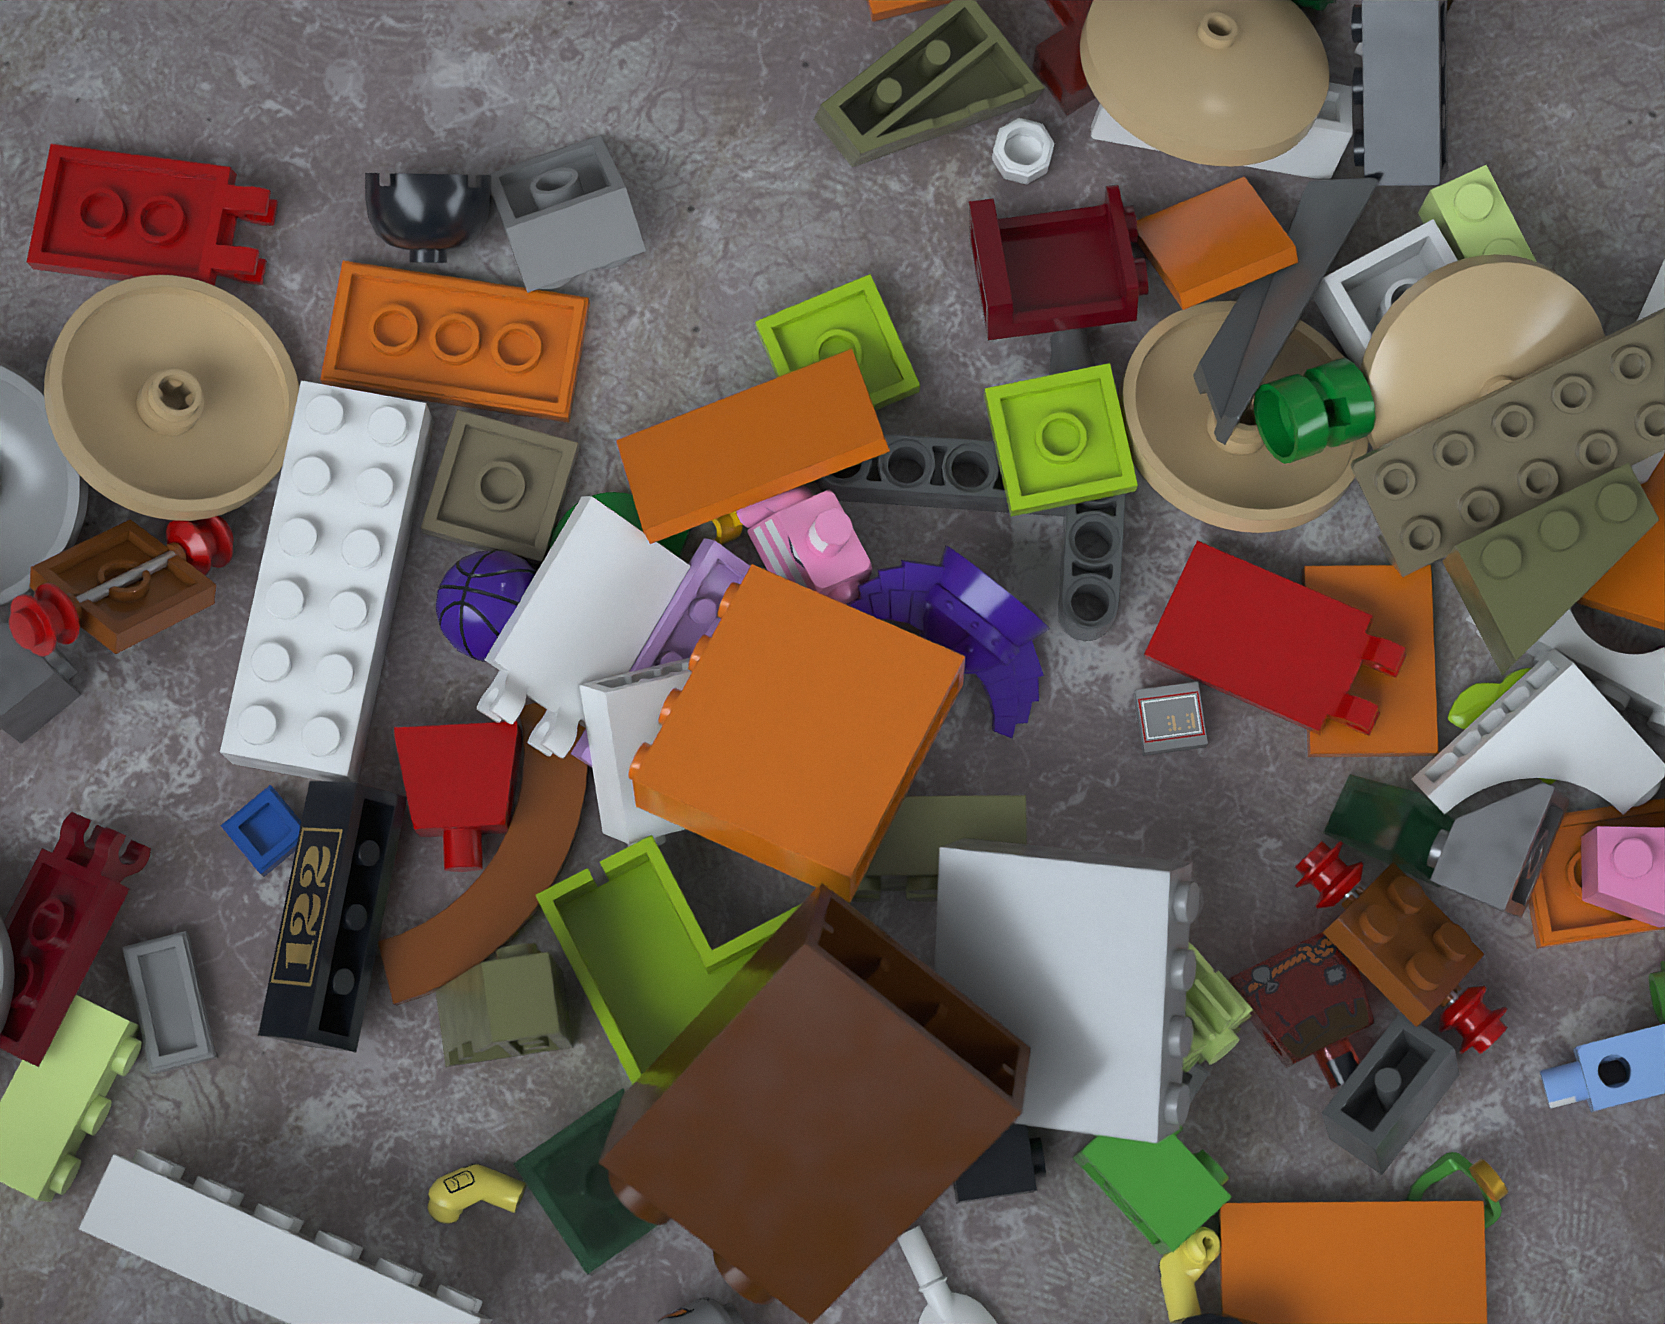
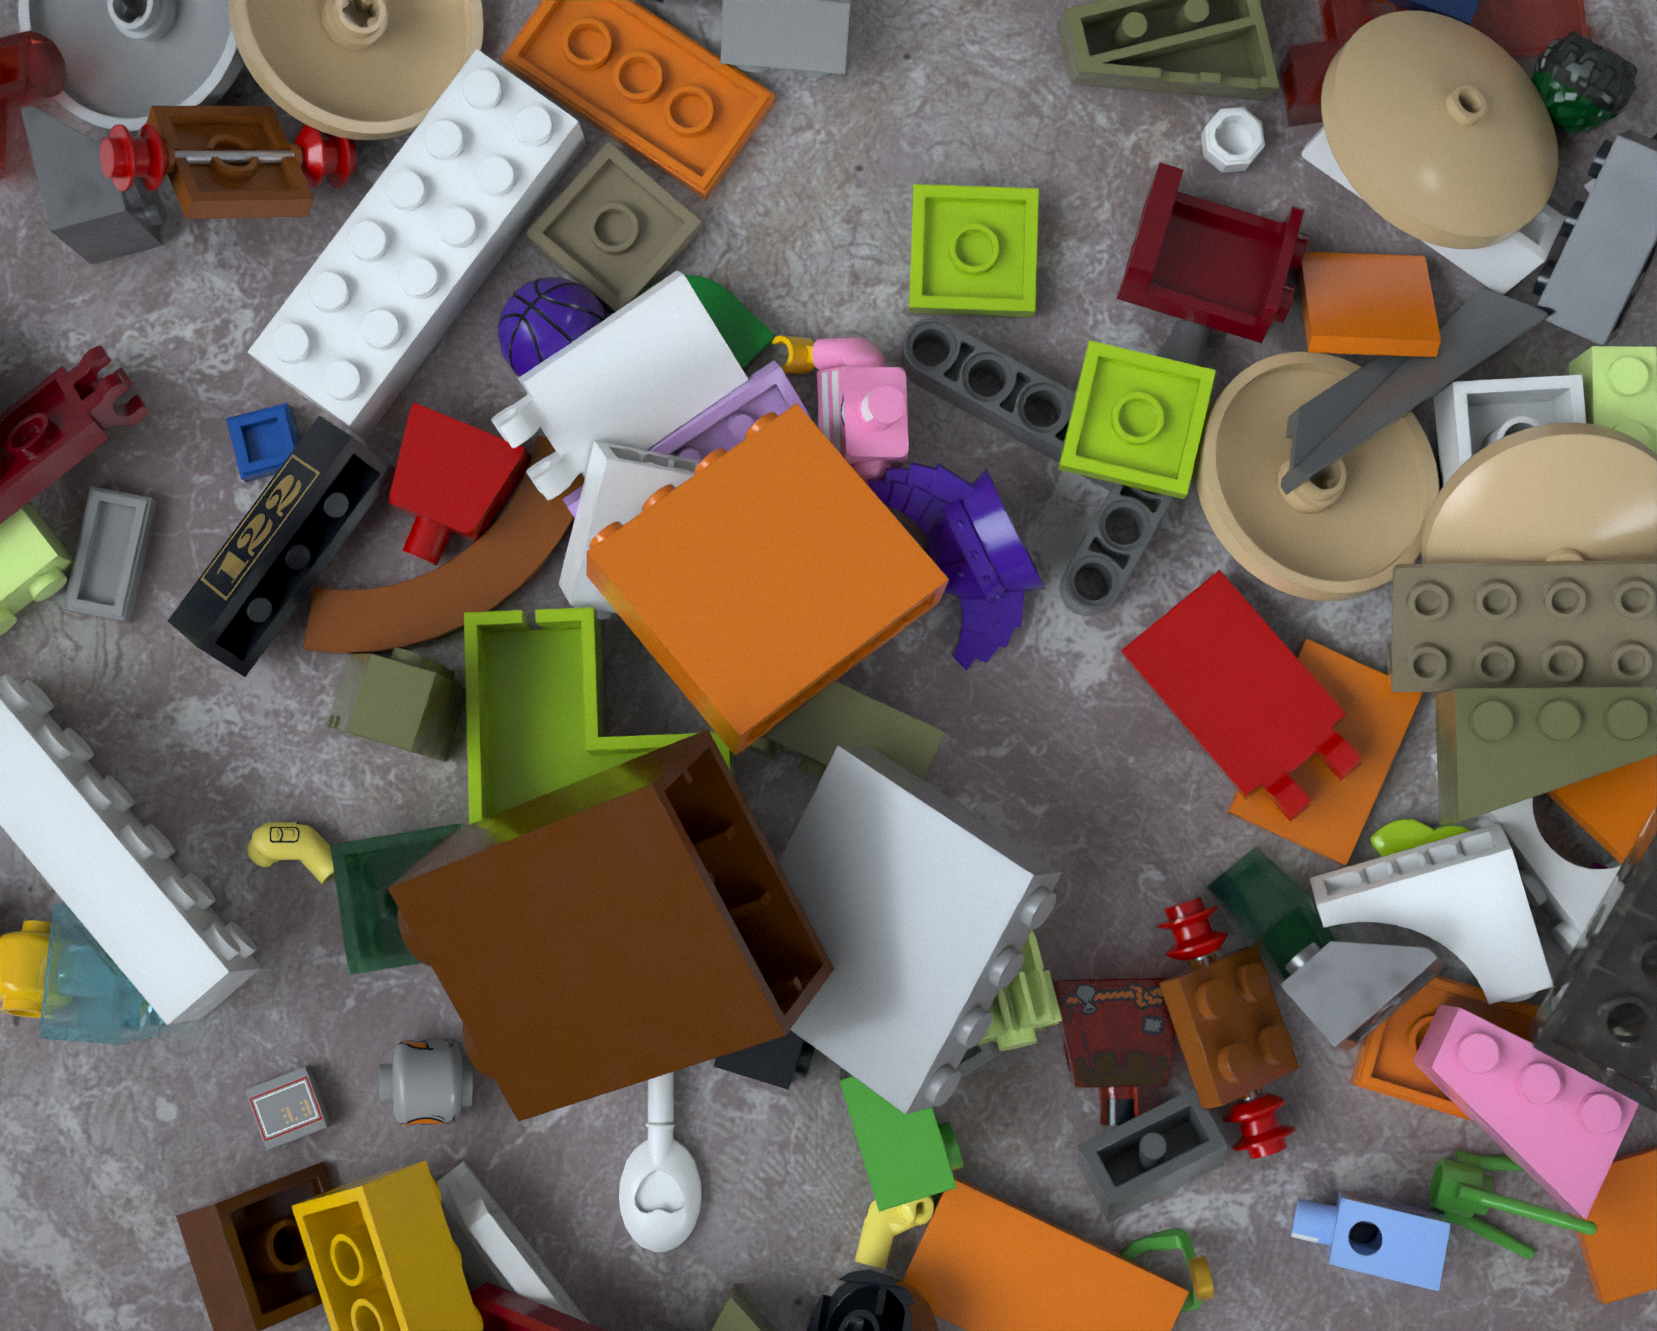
camera: 30 degrees right, 5 degrees up
(751, 446) = (853, 296): orange tile -> none
(1170, 718) = (1117, 719): light grey tile -> none
(1314, 410) = (1384, 501): green wheel -> none

